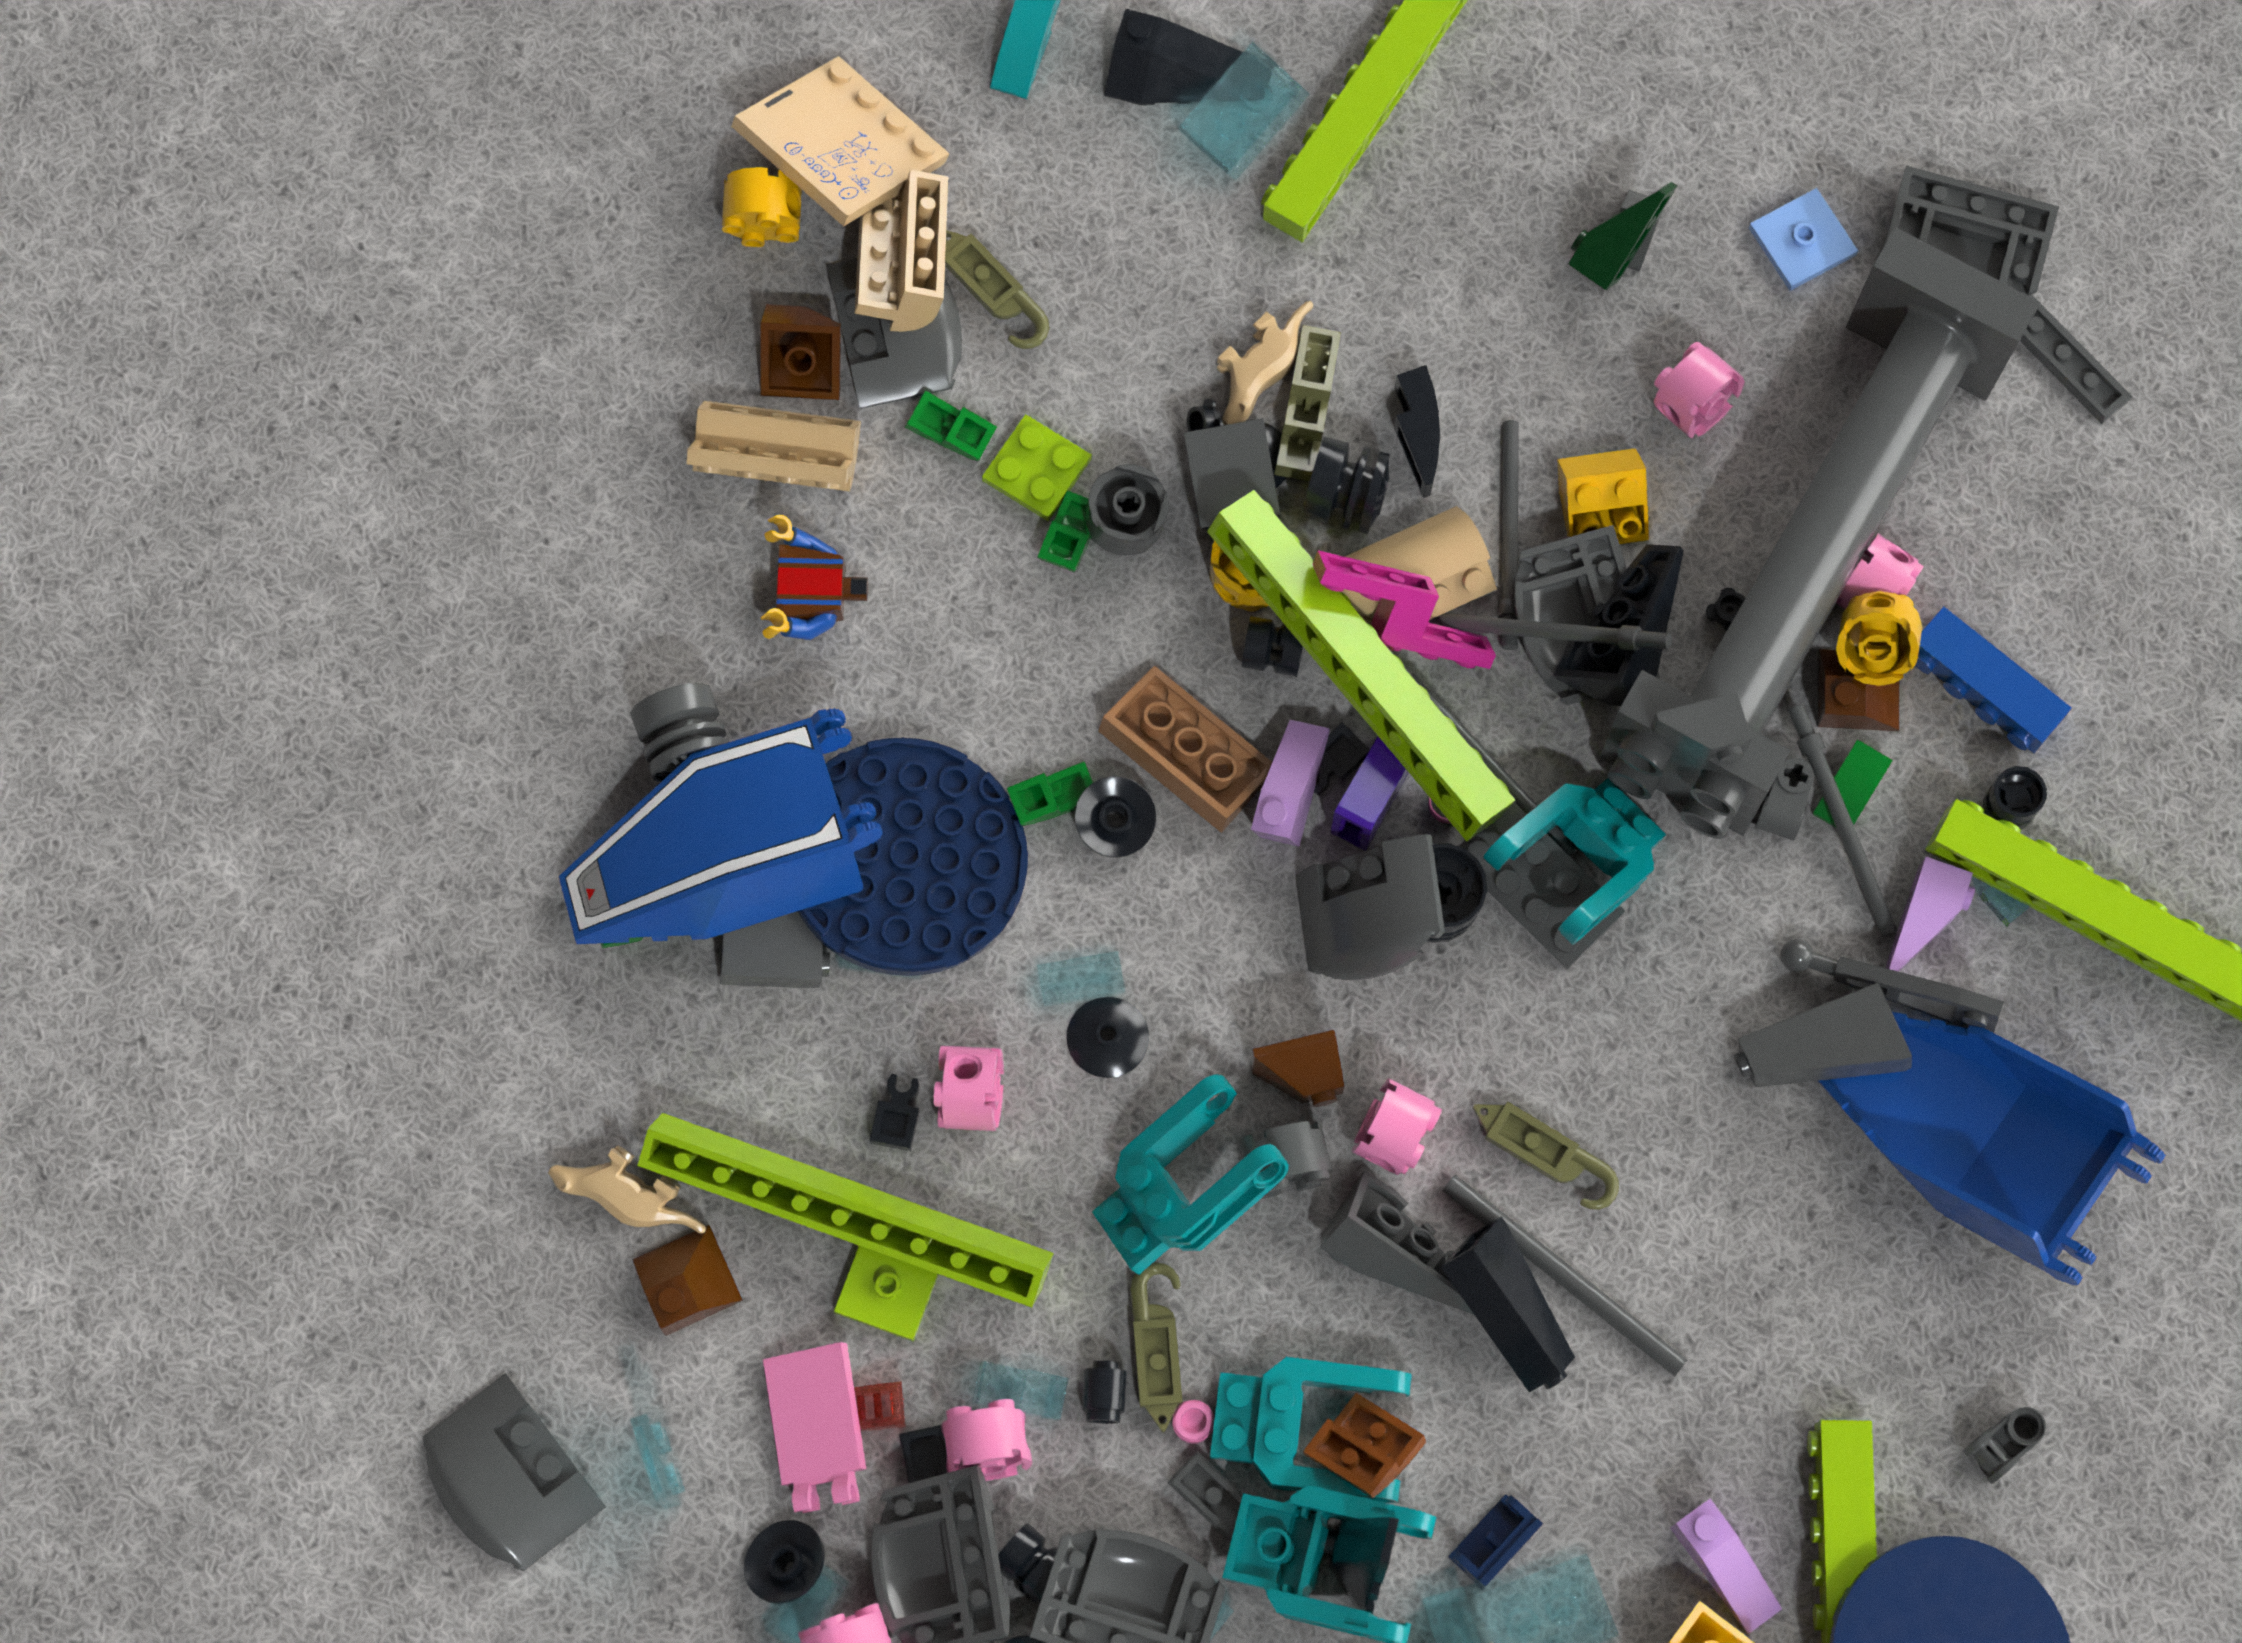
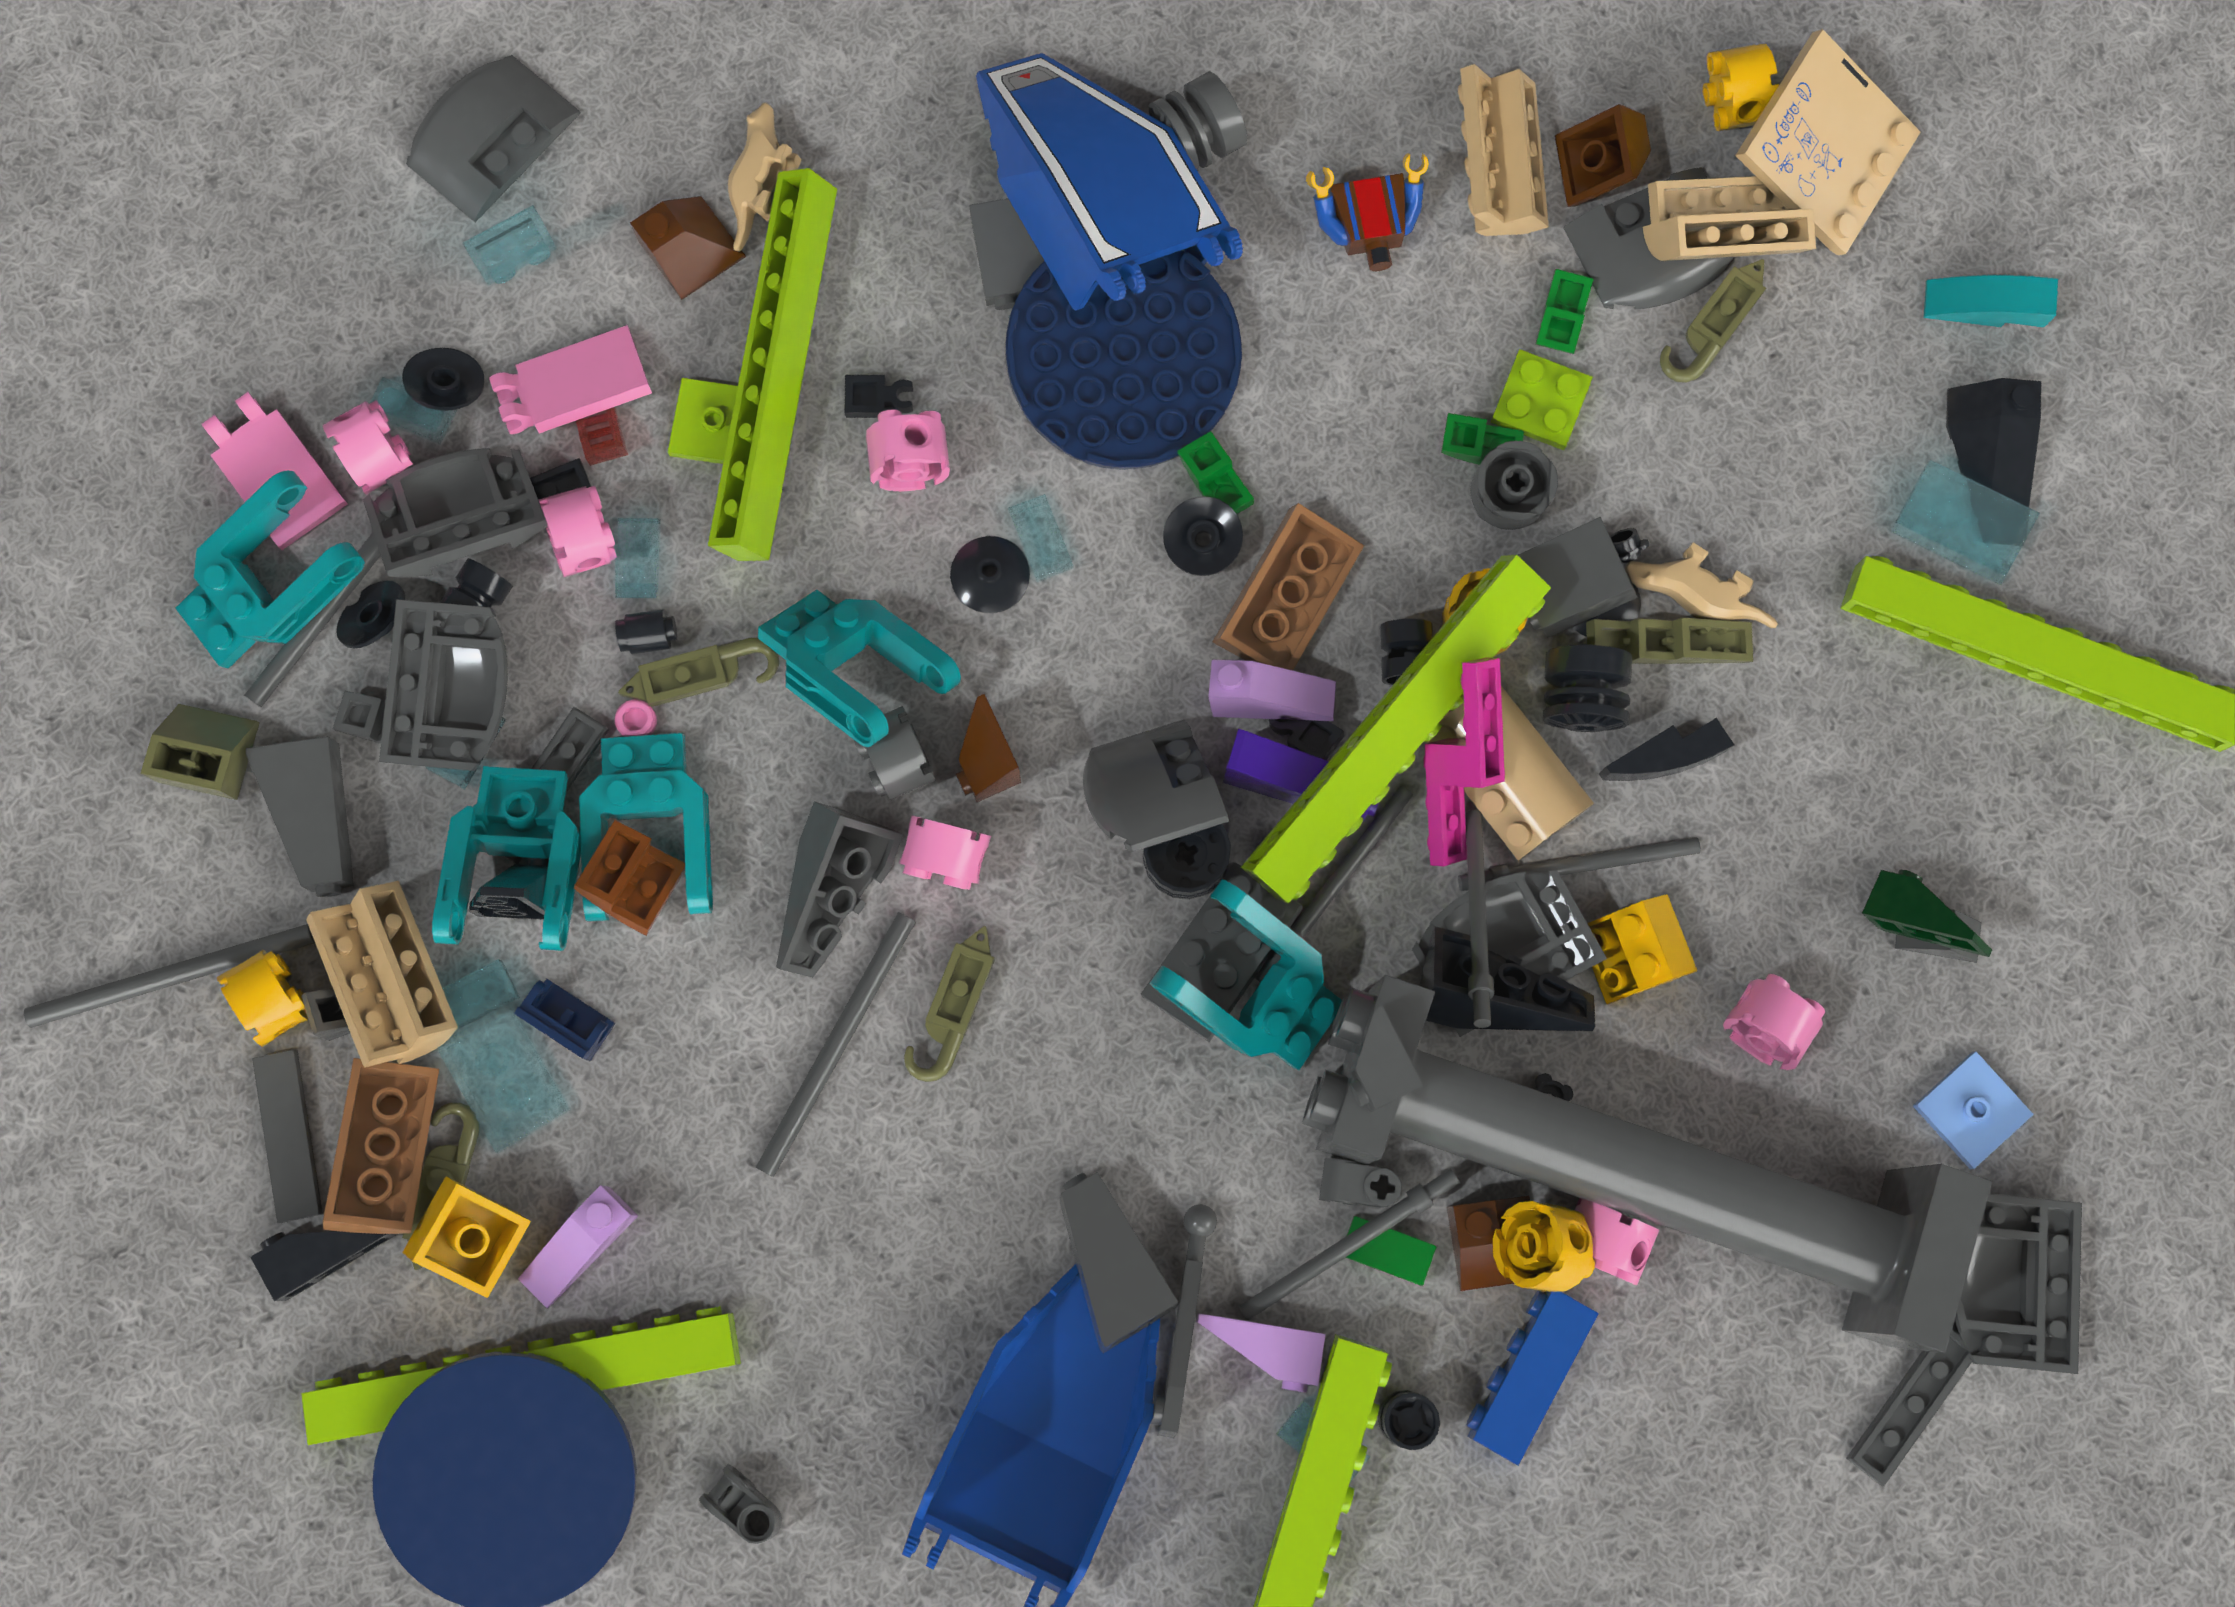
camera: 75 degrees right, 5 degrees up
(1510, 1305) = (791, 990): black slope -> none

